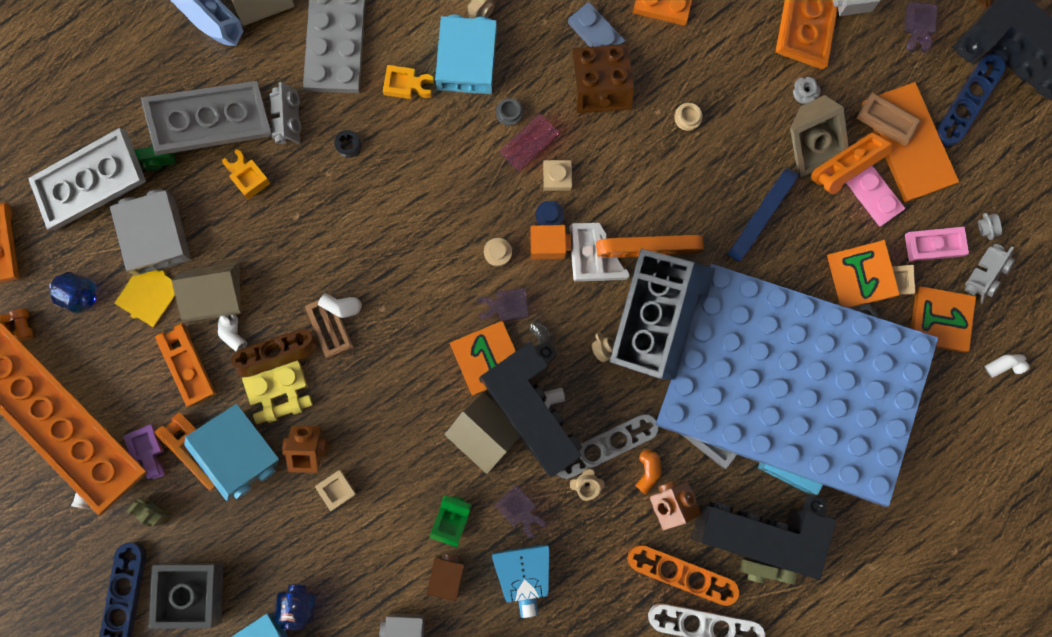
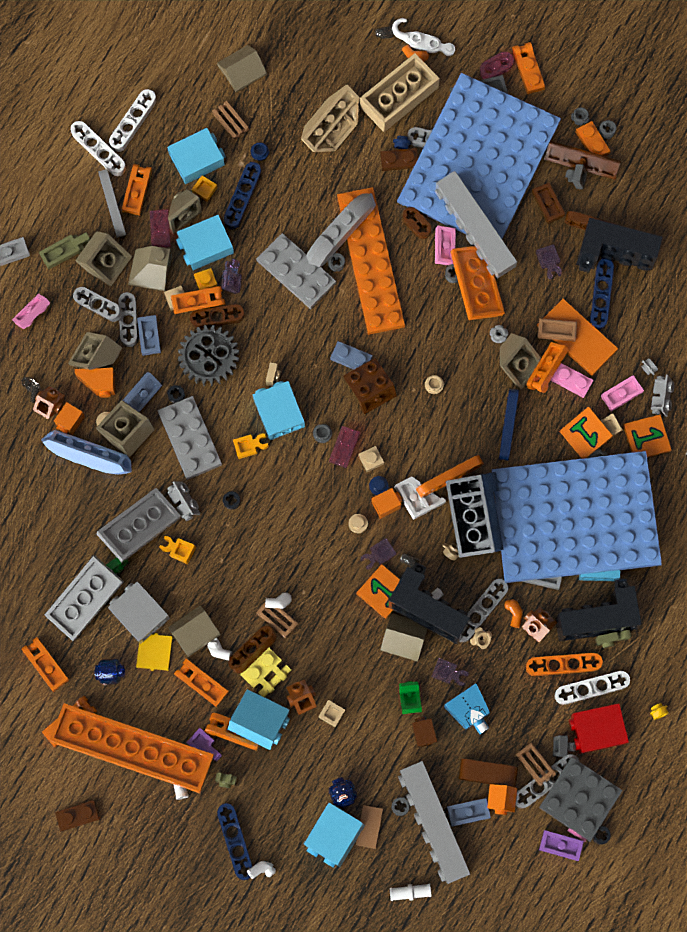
camera: 20 degrees left, 5 degrees down
(186, 595) = (274, 815): dark grey brick -> none

